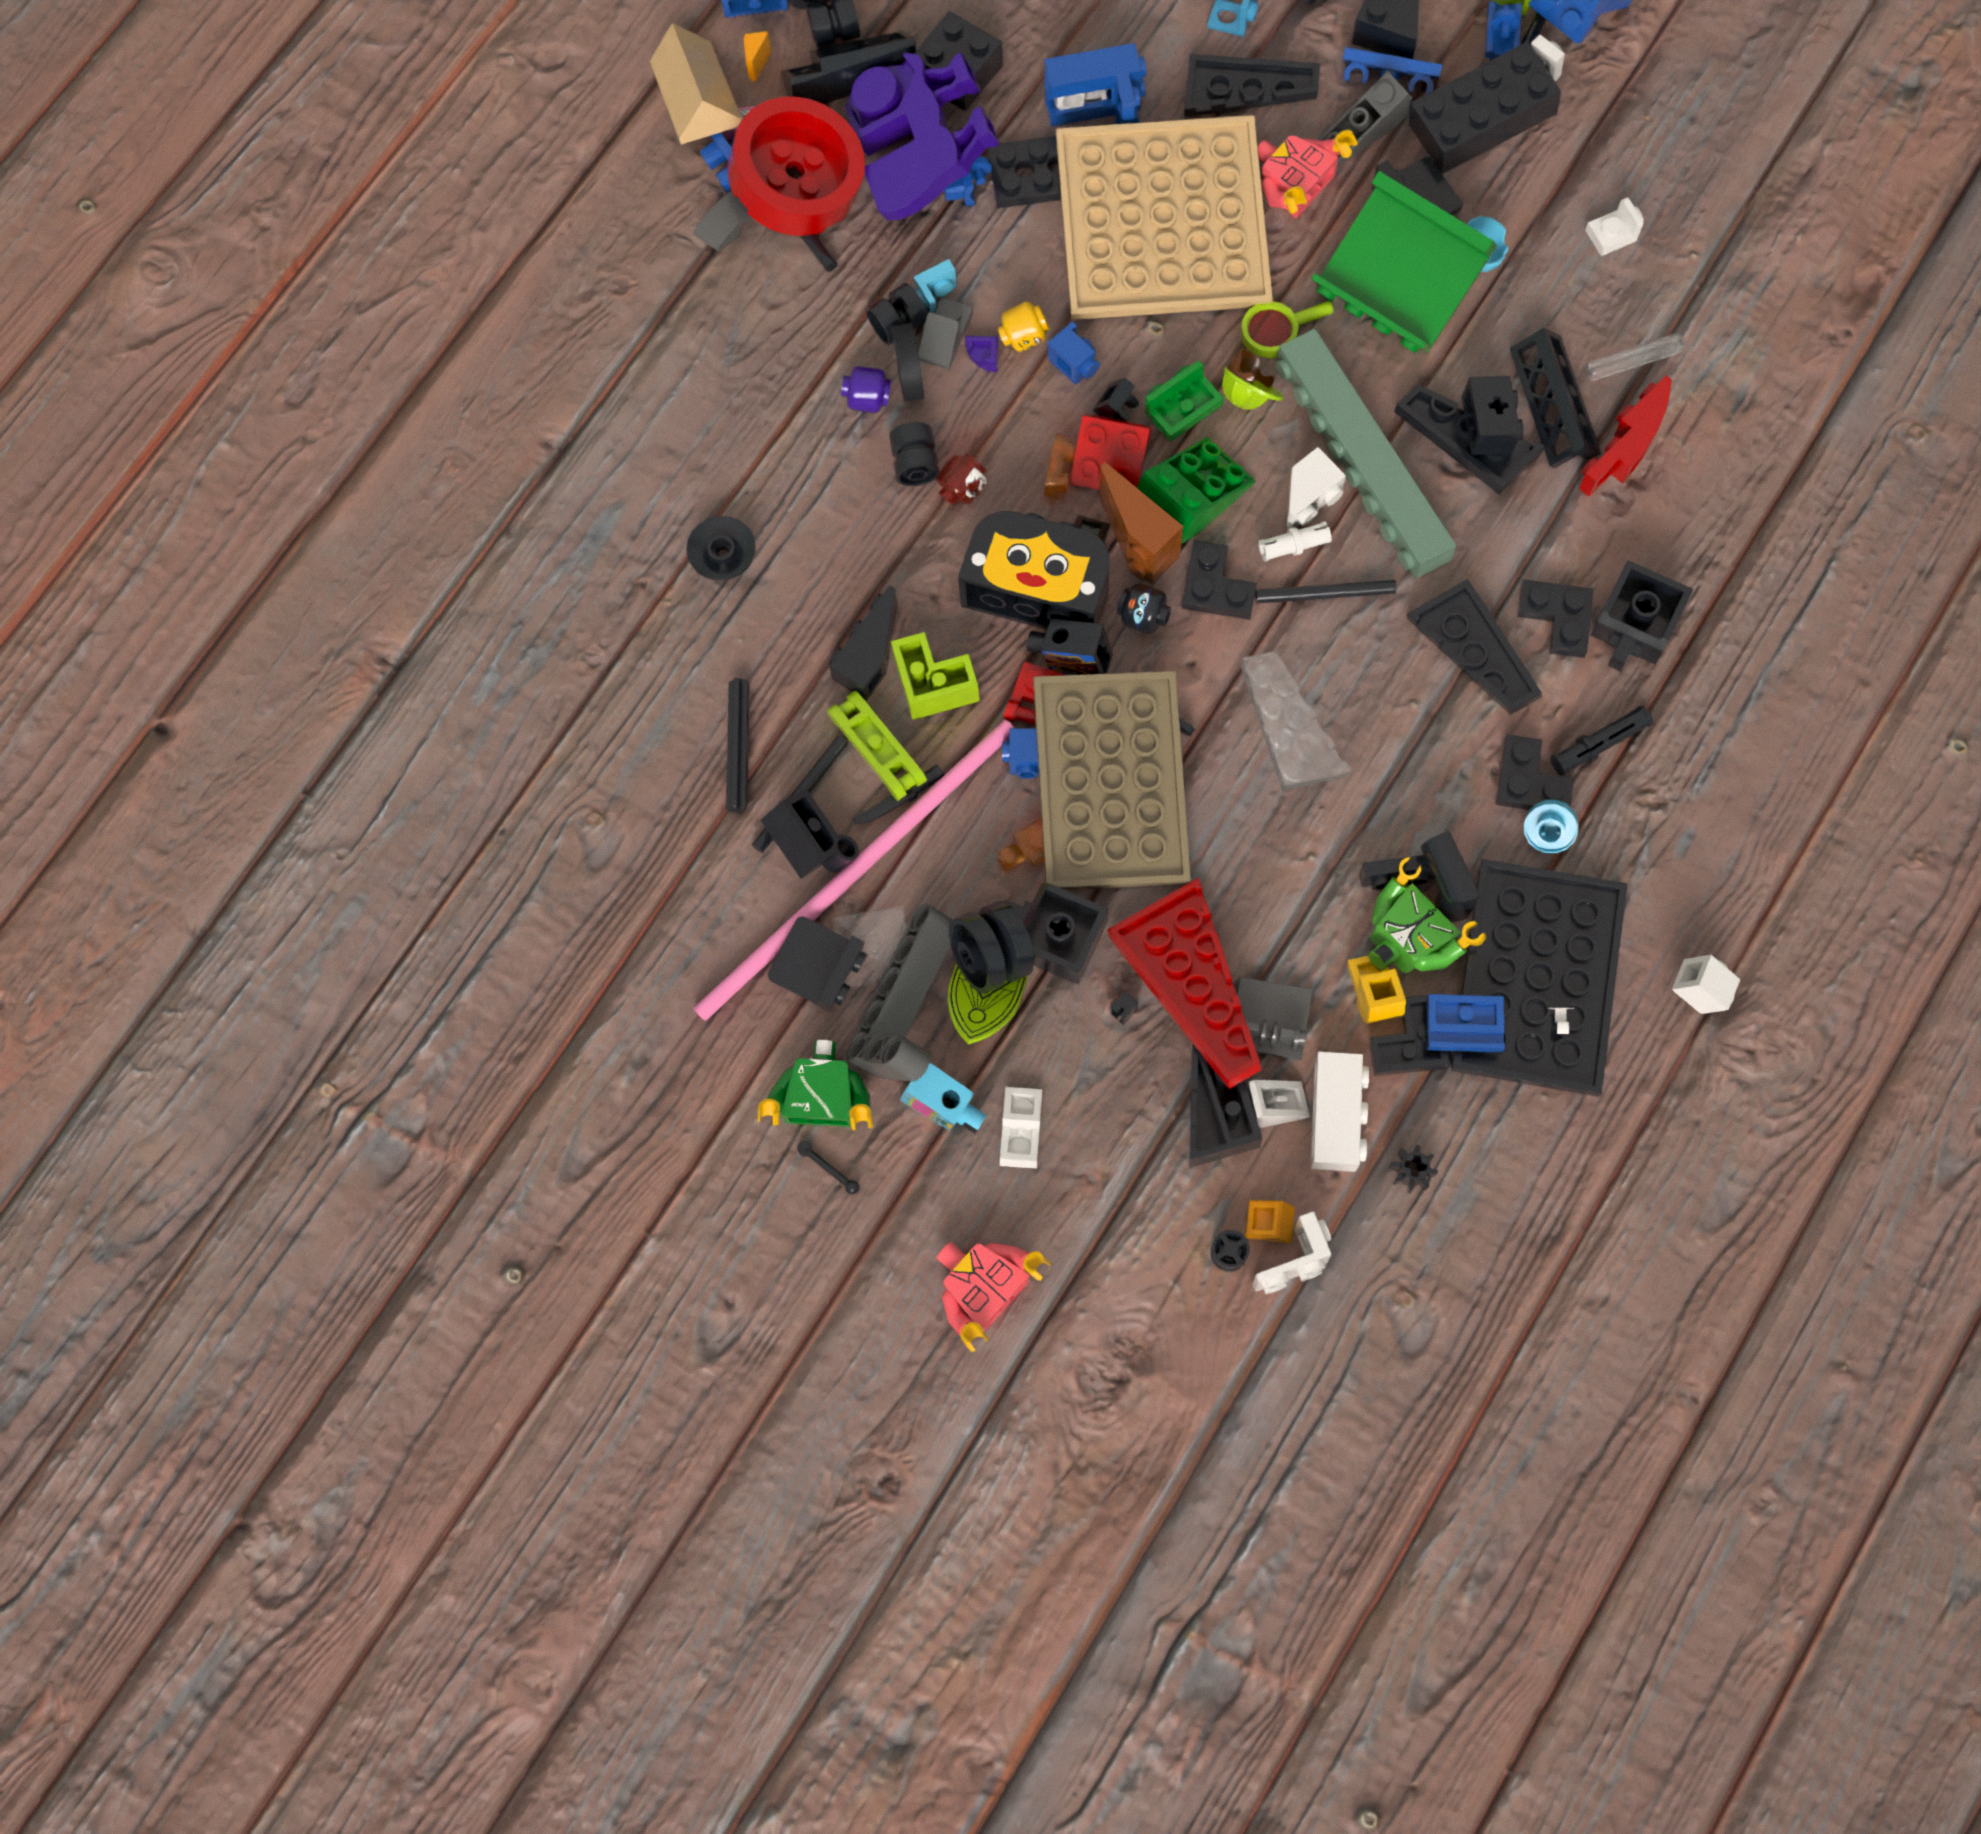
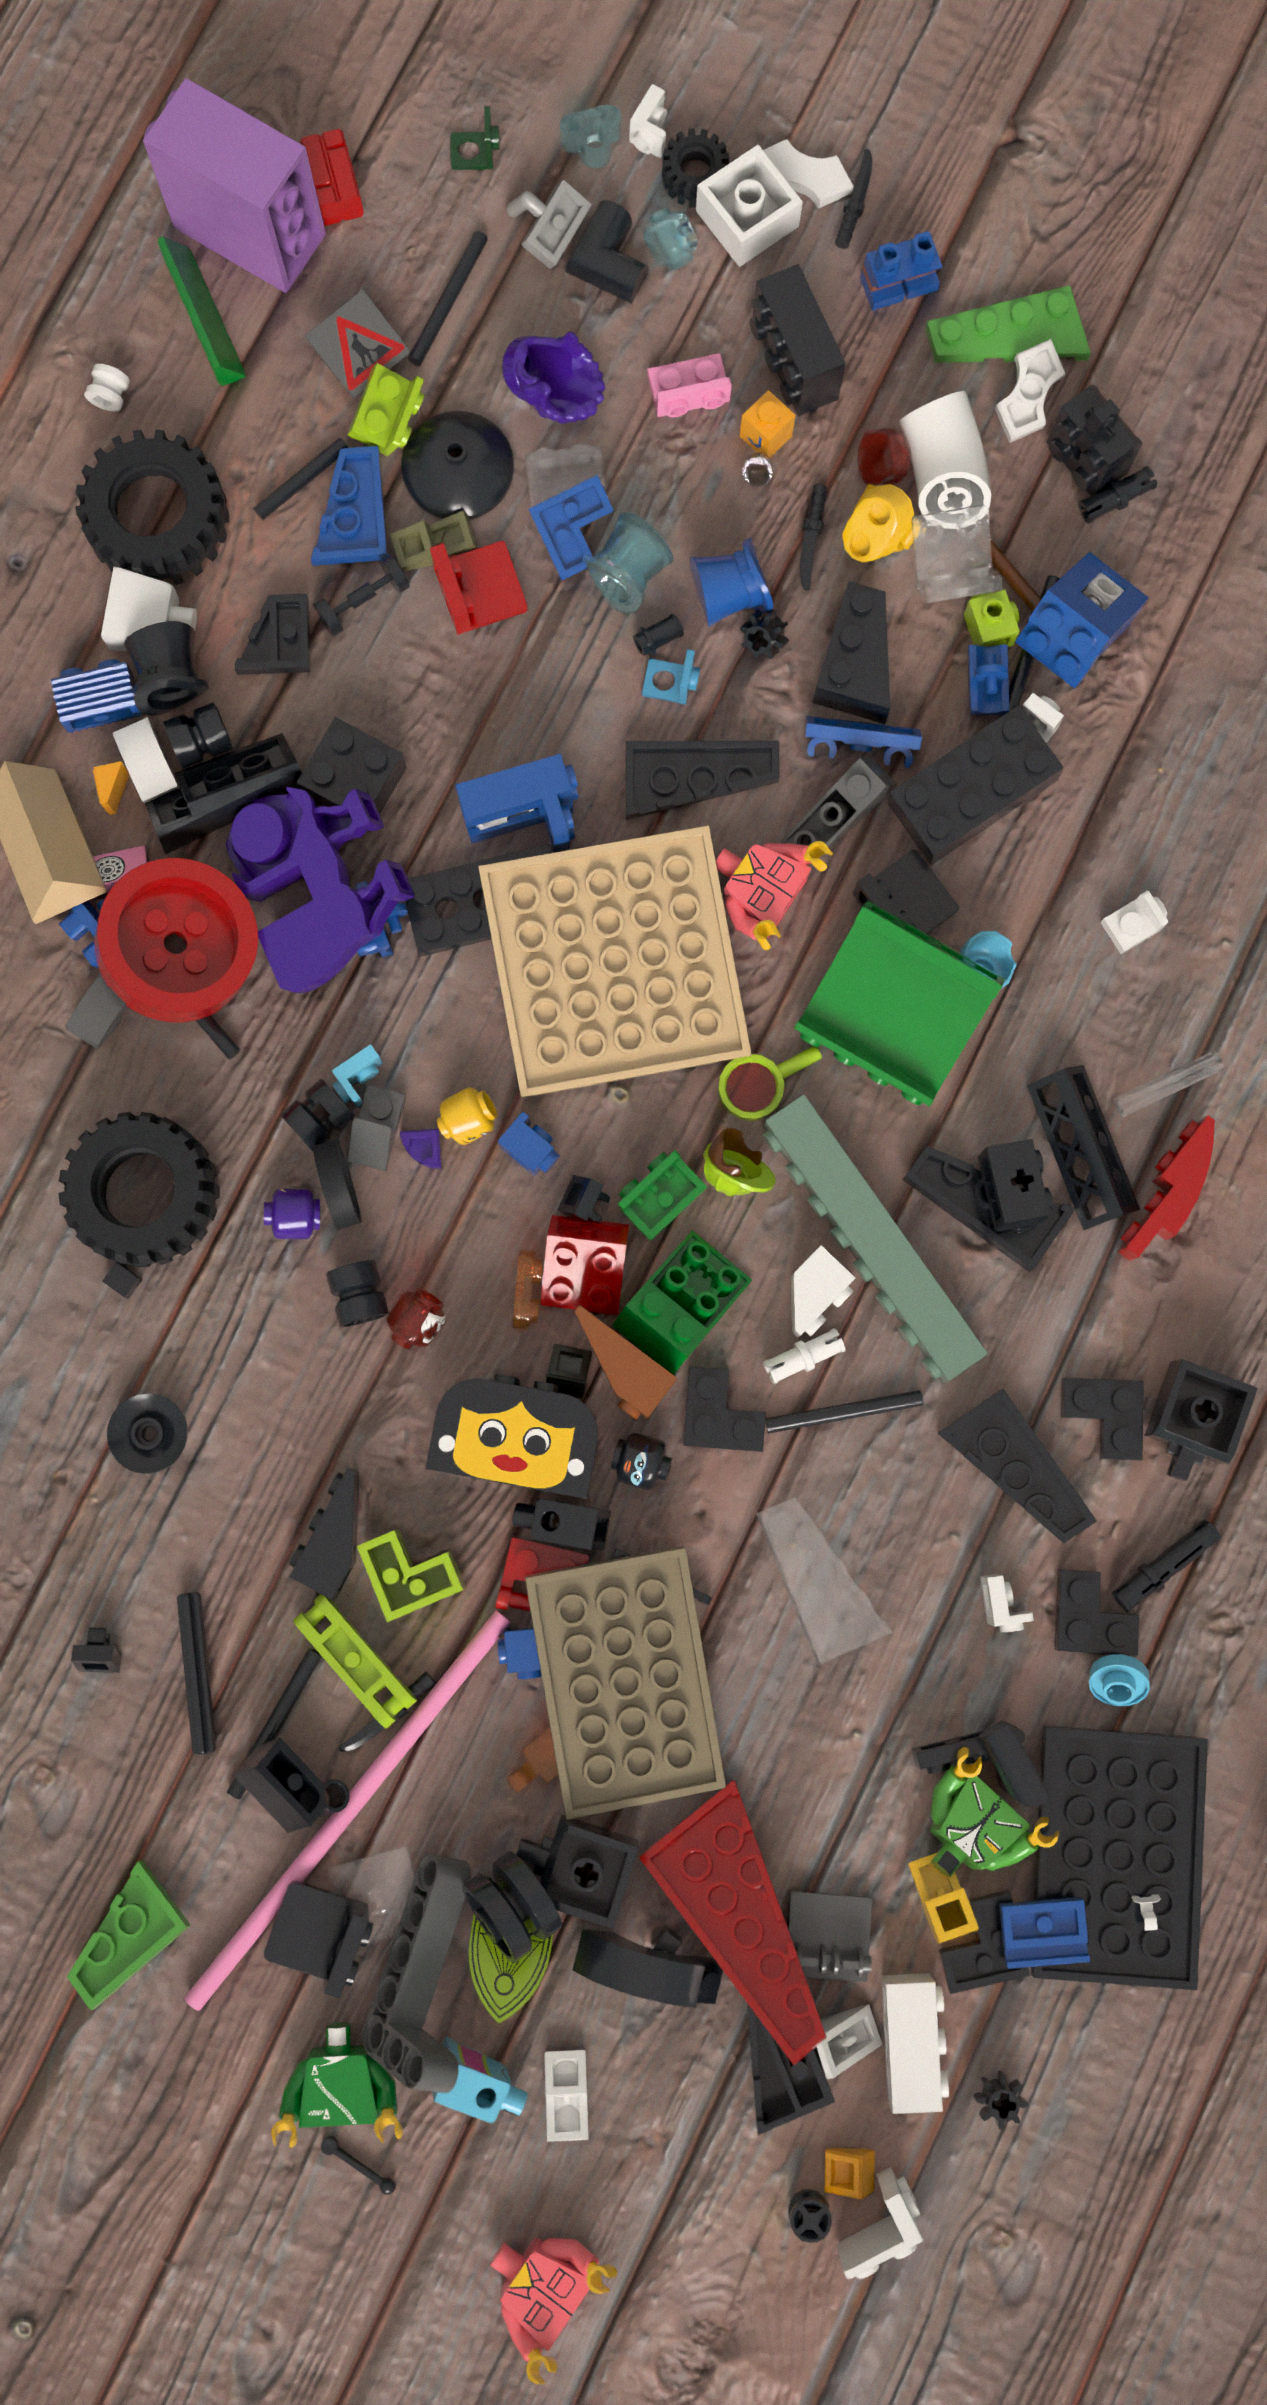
camera: 15 degrees left, 10 degrees up
(654, 719) = (97, 1654): none -> black tile
(656, 949) = (131, 1935): none -> bright green wing
(714, 431) = (122, 1280): none -> black piece
(732, 318) = (99, 1157): none -> black tyre
(787, 38) = (145, 760): none -> white slope
(1108, 1016) = (647, 1971): none -> black arch
(1448, 756) = (997, 1598): none -> white bracket

